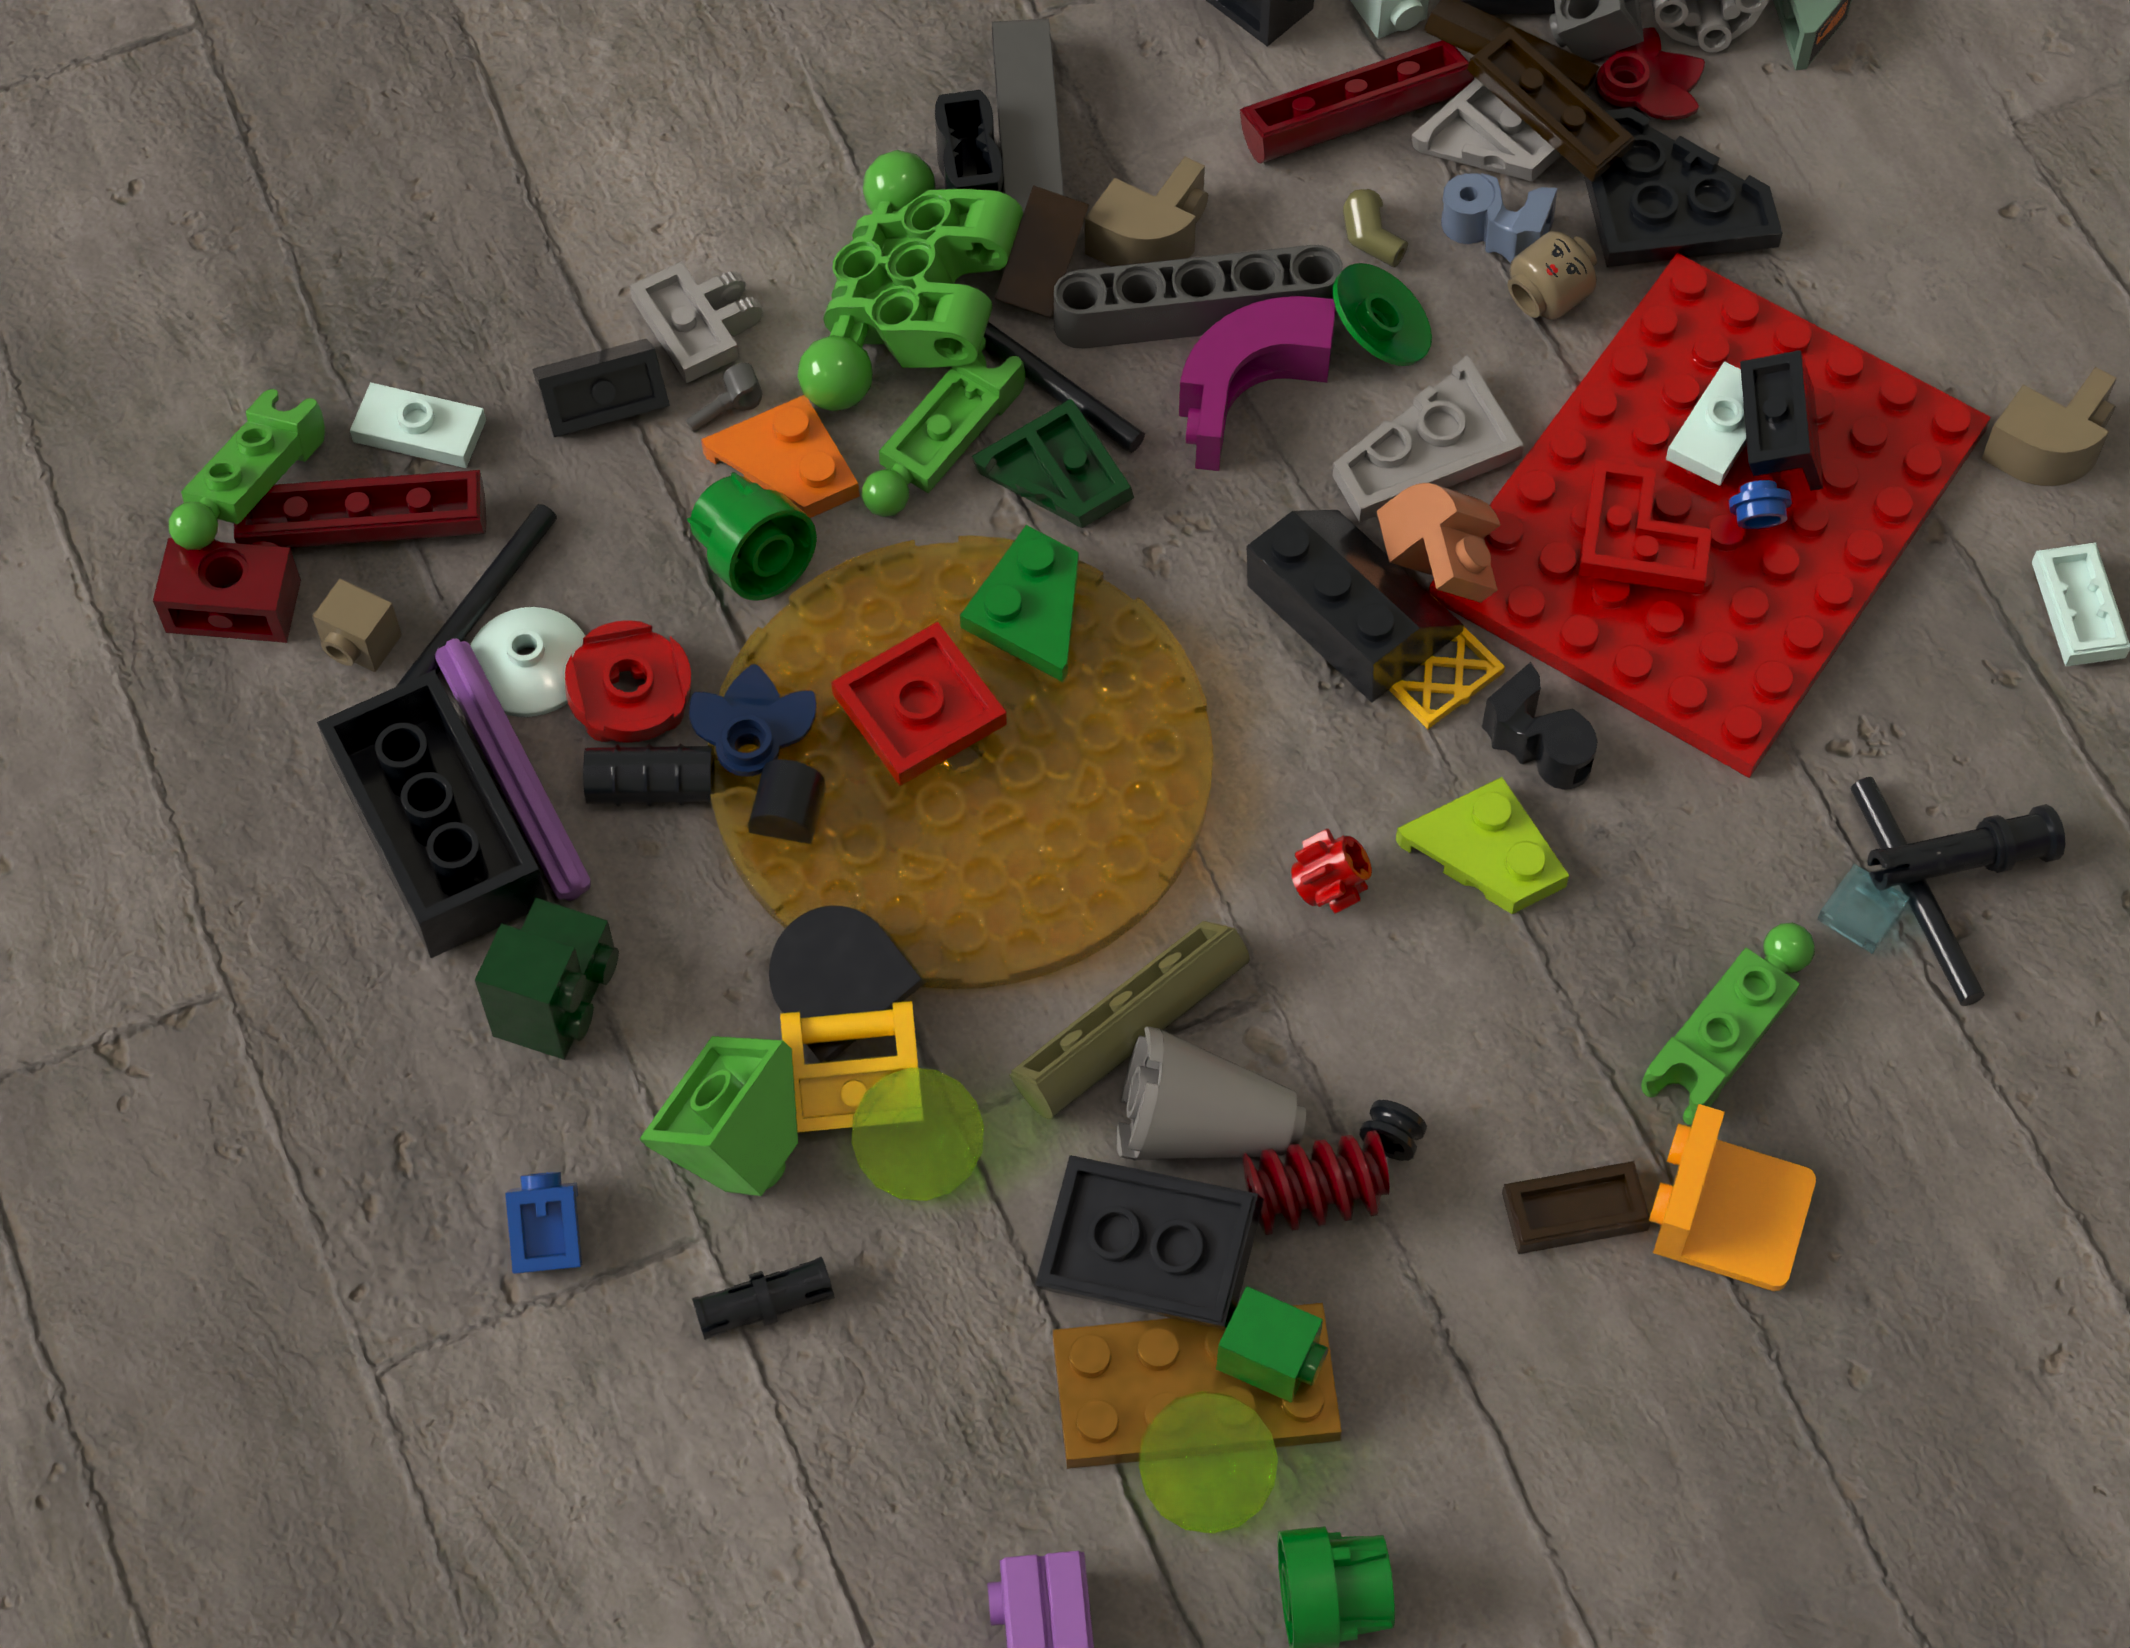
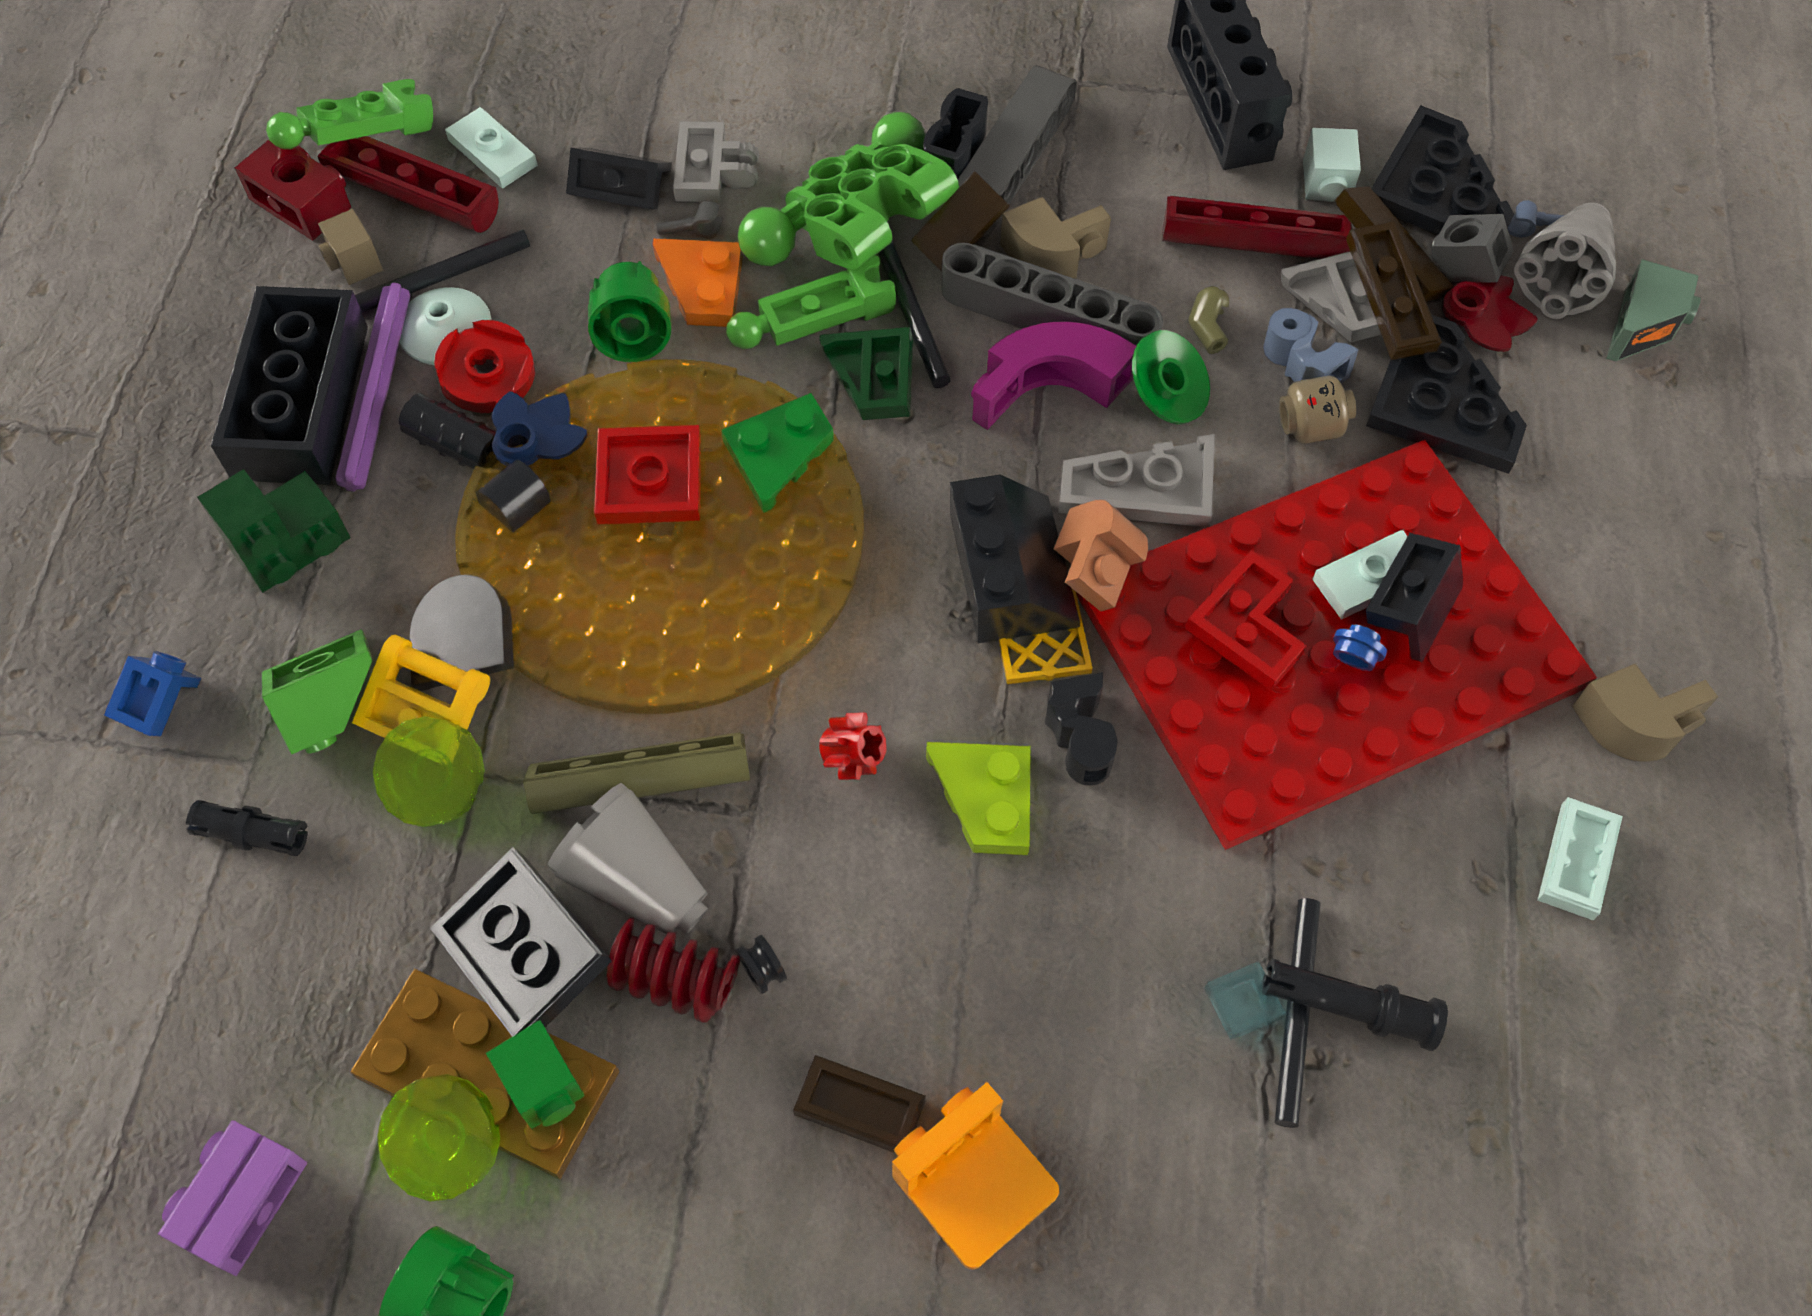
camera: 30 degrees right, 0 degrees up
(1732, 1019) = (1077, 1029): bright green plate -> none

